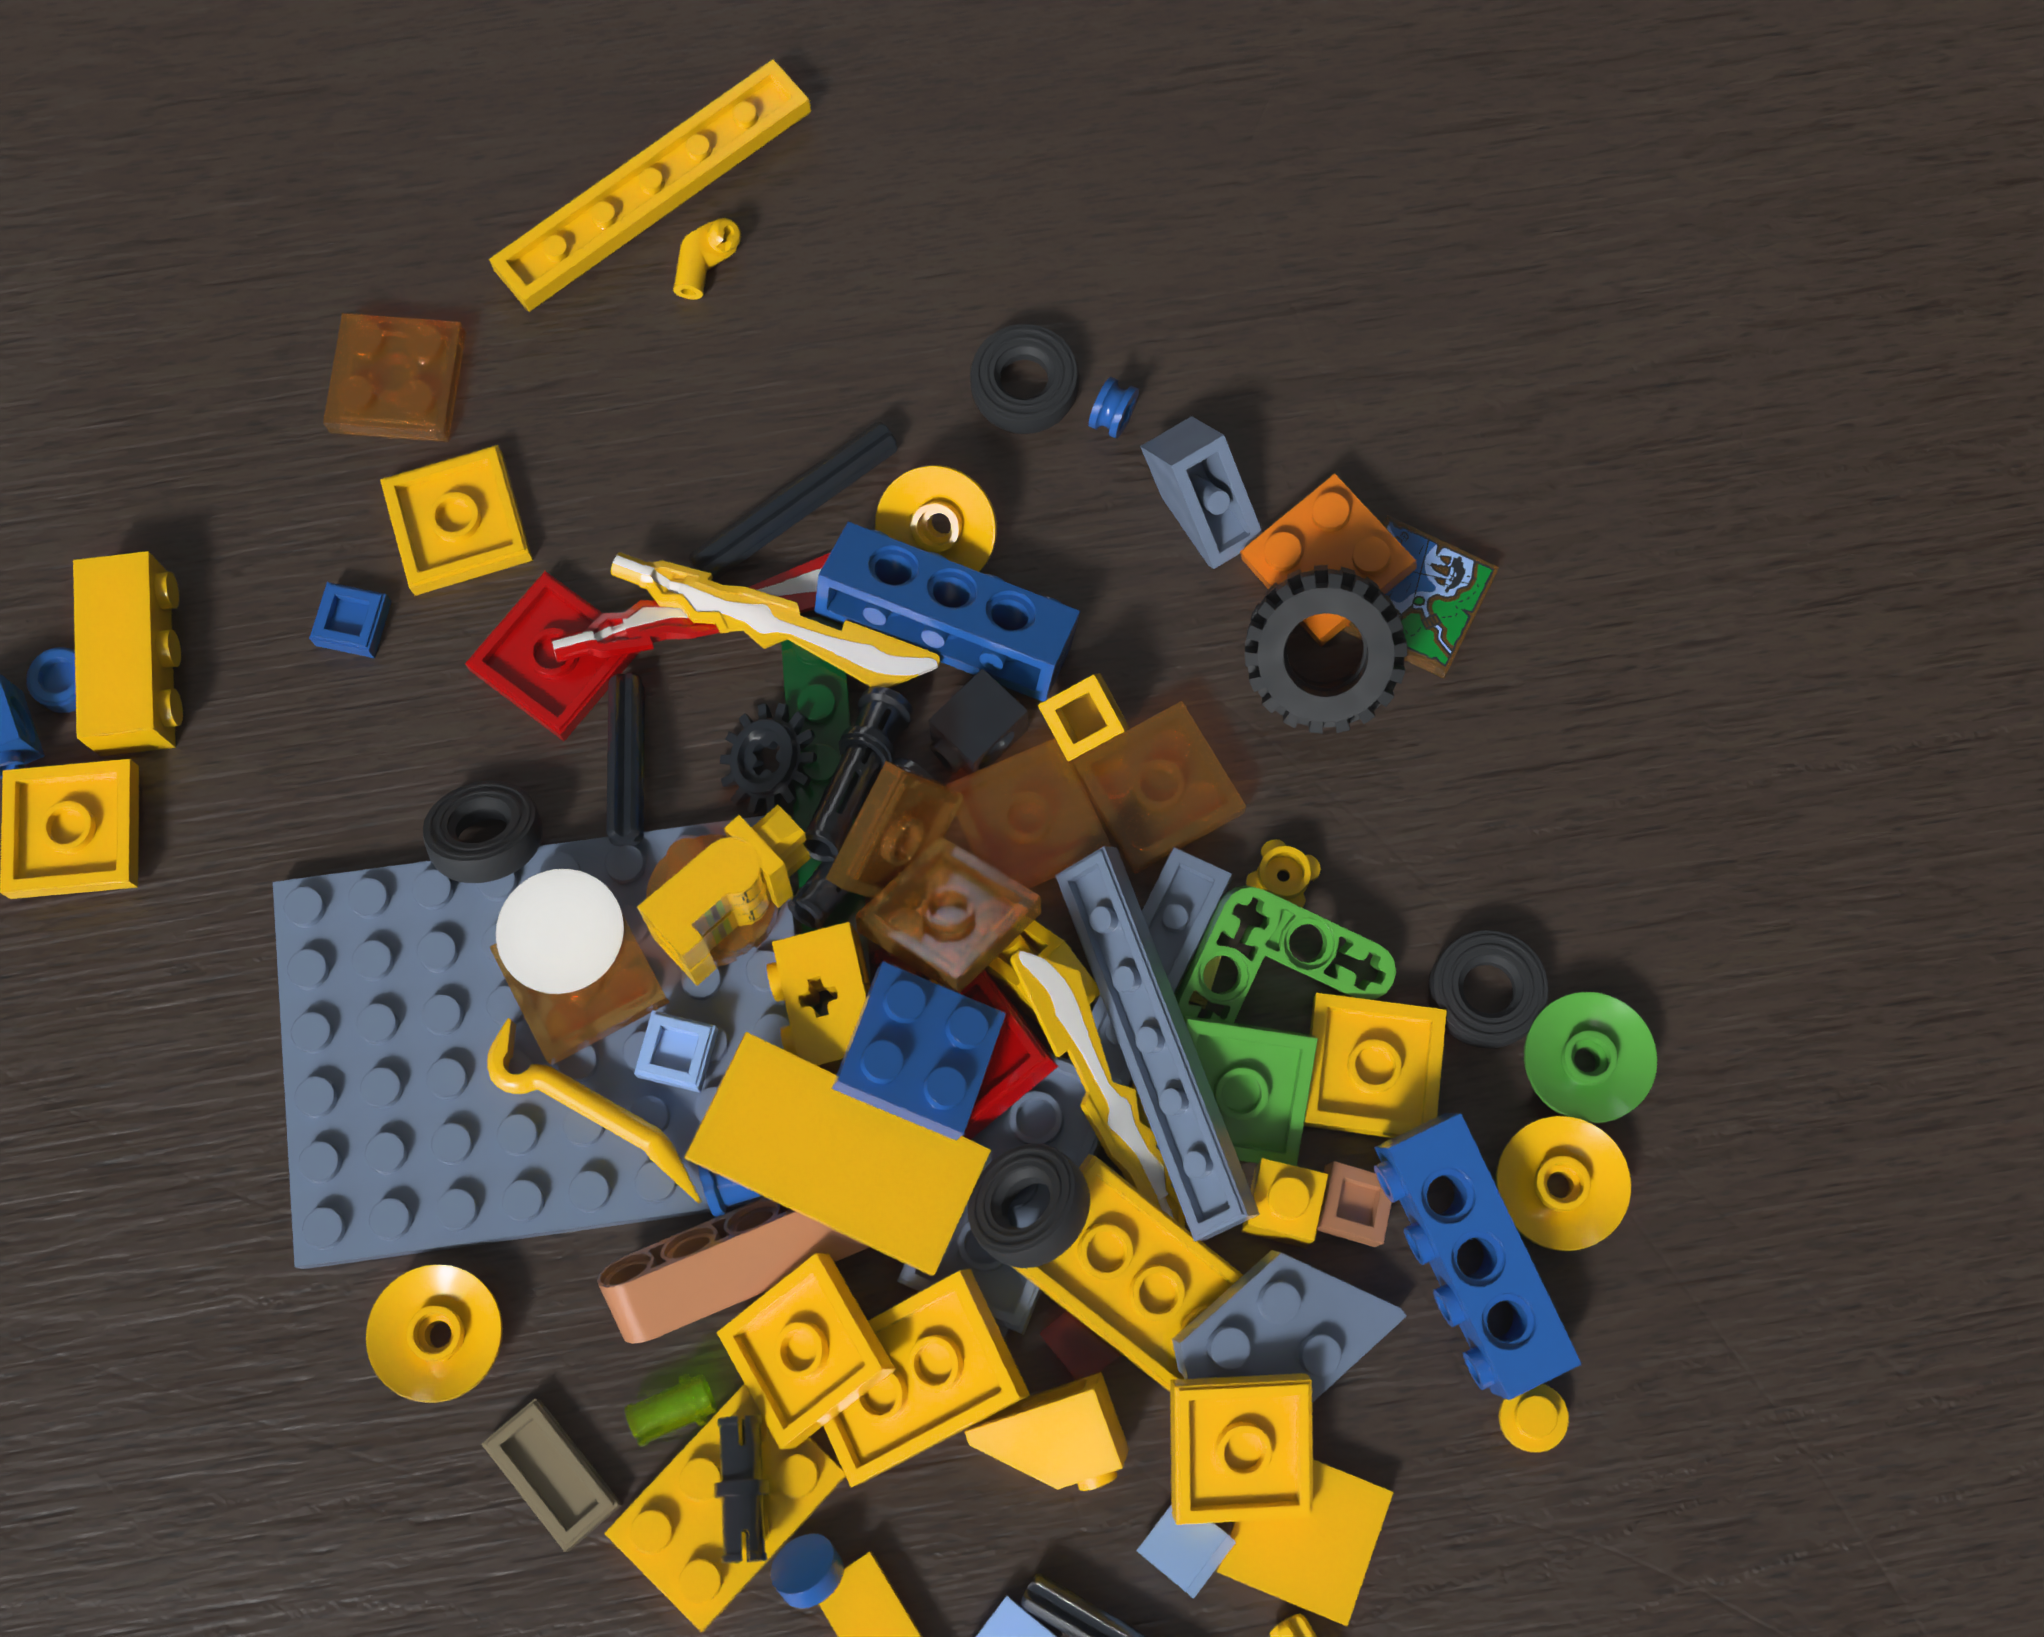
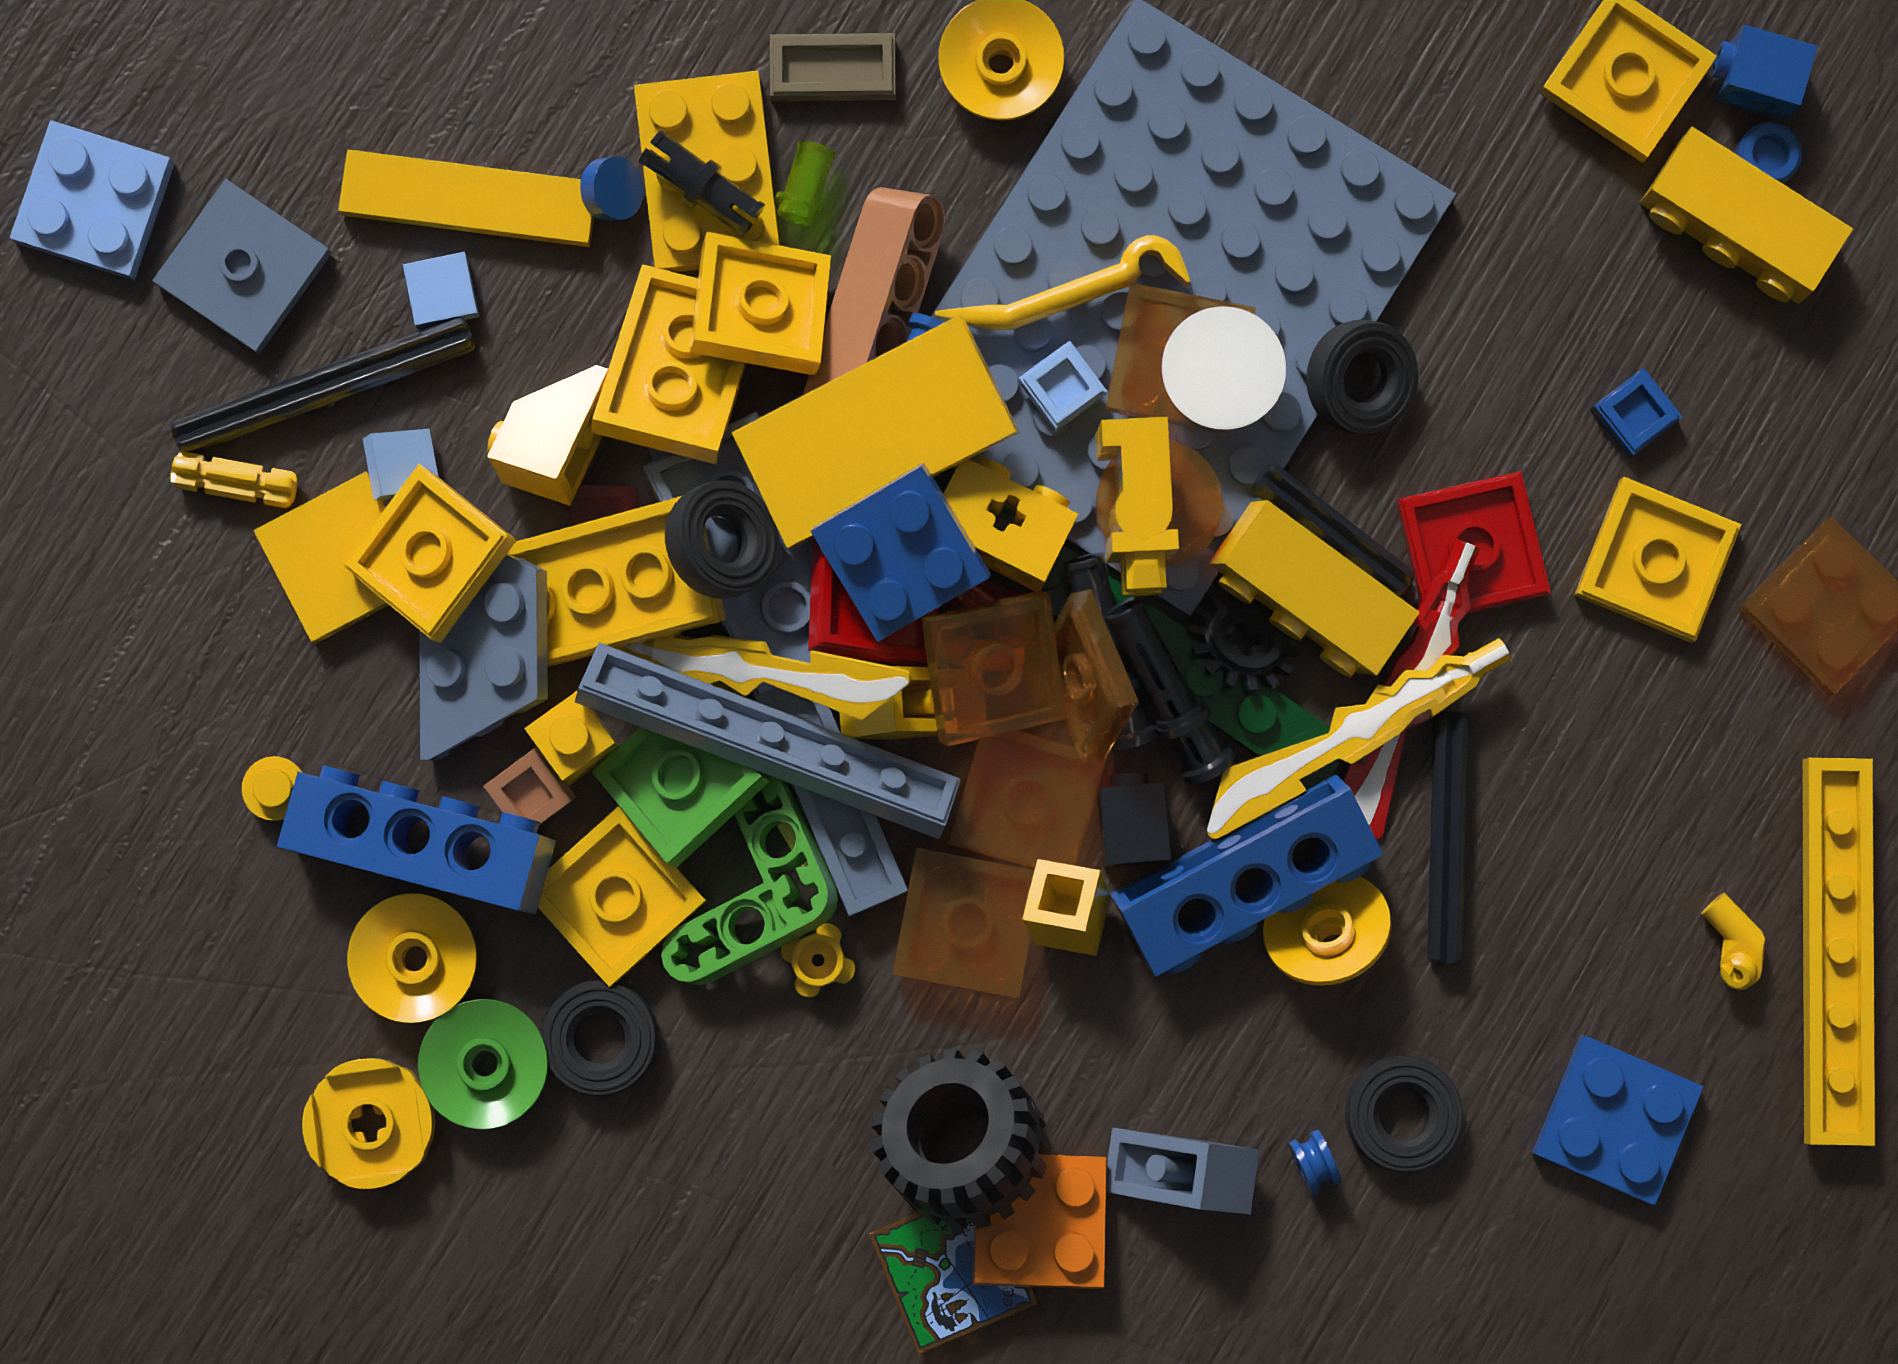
camera: 125 degrees right, 10 degrees up
(685, 734) = (1312, 590): none -> yellow brick
(901, 240) = (1617, 1119): none -> blue plate
(1750, 1105) = (346, 1153): none -> yellow plate

